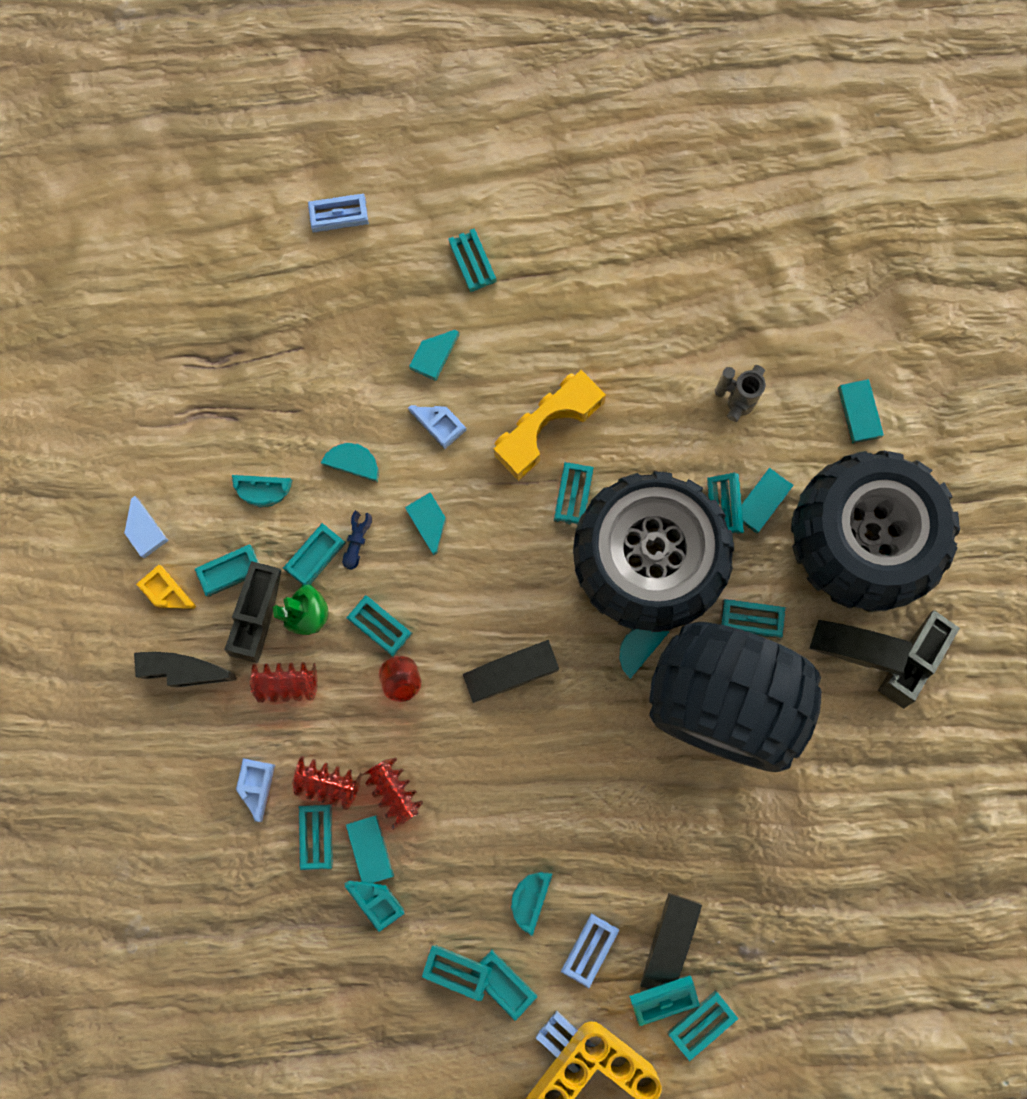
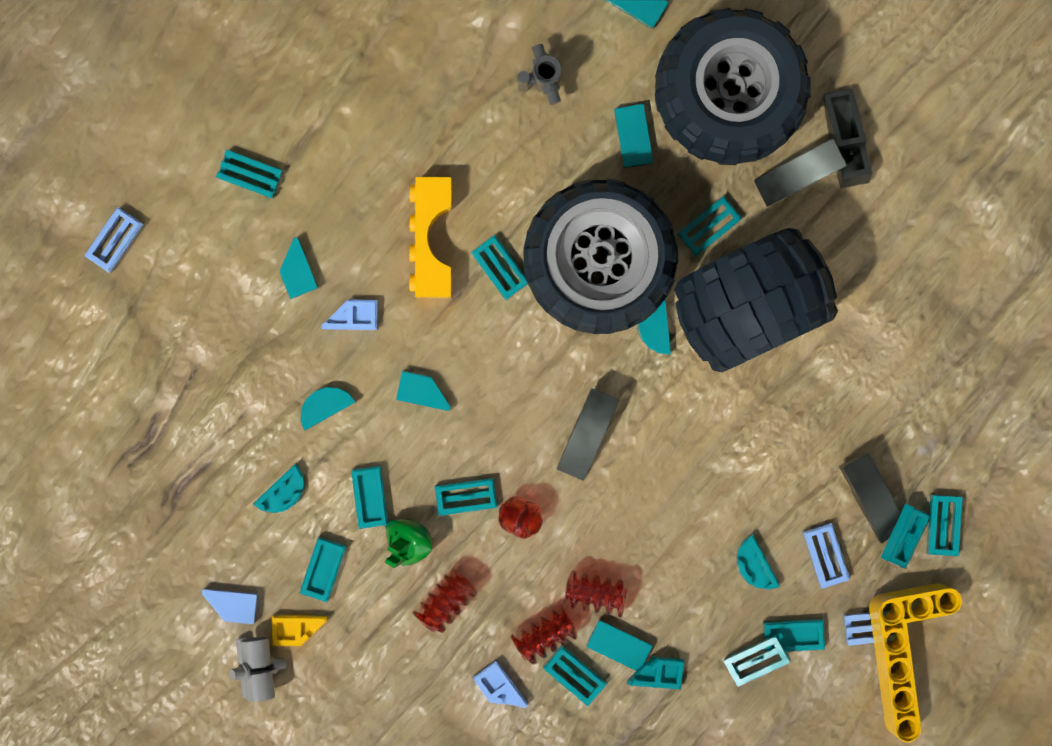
camera: 55 degrees left, 10 degrees up
(107, 588) = (256, 668): none -> light grey pin
(179, 669) = (366, 667): pearl dark grey slope -> none
(253, 612) = (372, 578): pearl dark grey slope -> none
(356, 540) = (387, 457): dark blue piece -> none
(735, 497) = (612, 156): teal tile -> none

